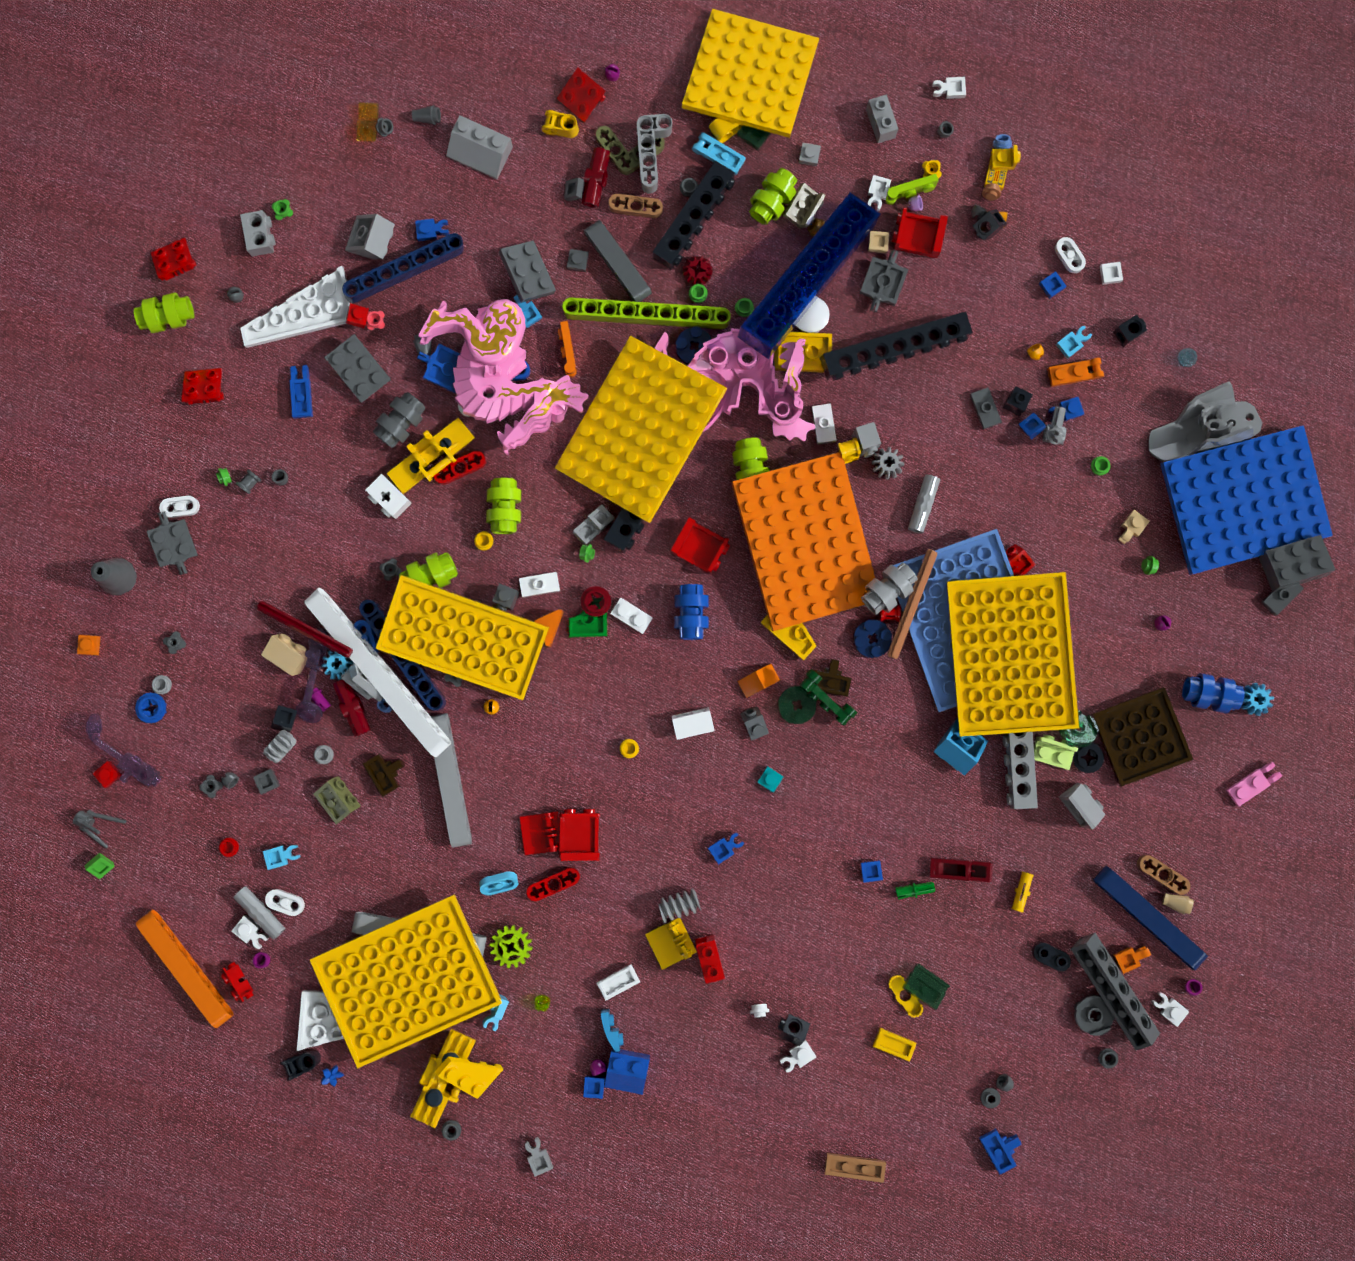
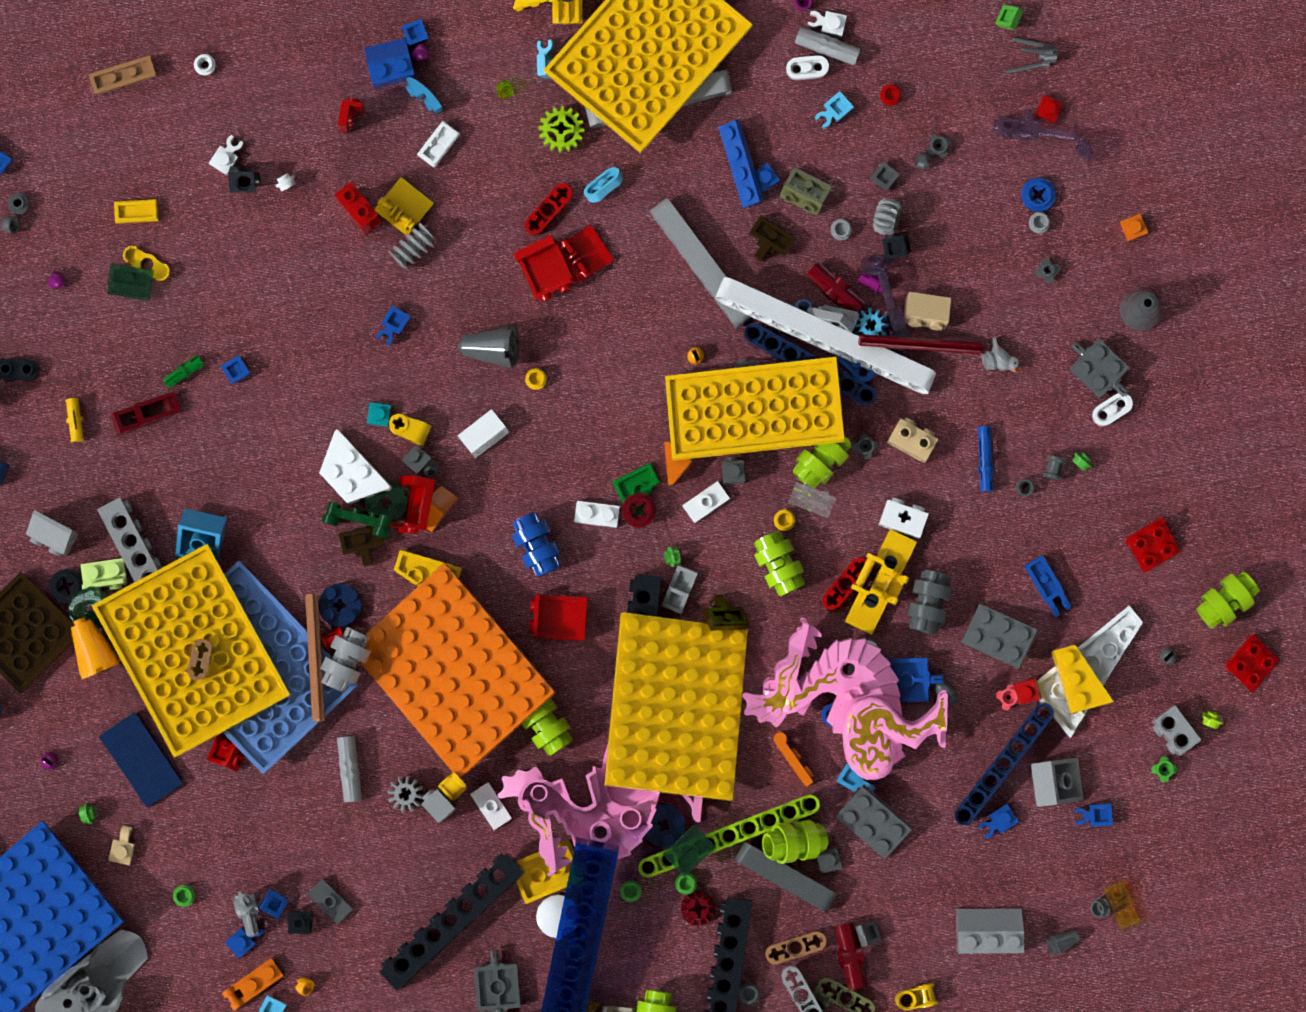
camera: 155 degrees right, 0 degrees up
(225, 229) = (1212, 719): none -> lime plate
(249, 589) = (999, 359): none -> light grey animal
(299, 514) = (985, 459): none -> blue pin
(312, 302) = (1078, 681): none -> yellow wedge
(349, 555) = (913, 440): none -> tan brick
(352, 197) = (1097, 815): none -> blue plate
(364, 827) = (766, 177): none -> blue plate
(377, 847) = (741, 163): none -> blue plate
(453, 545) = (812, 499): none -> clear plate
(569, 484) = (725, 617): none -> dark brown hinge
(596, 281) = (789, 842): none -> lime piece
(652, 791) = (492, 346): none -> dark grey cone
(683, 311) = (689, 850): none -> clear green plate
(683, 1043) = (346, 116): none -> red bracket
(748, 752) = (413, 430): none -> yellow piece
(773, 687) = (418, 504): none -> red panel
(782, 1149) = (204, 58): none -> white plate
(815, 742) = (350, 471): none -> white wing
(987, 1017) = (56, 280): none -> magenta hinge
(1013, 645) = (204, 661): none -> medium nougat beam
(1088, 589) = (141, 759): none -> dark blue tile
(1092, 694) = (92, 648): none -> light orange cone

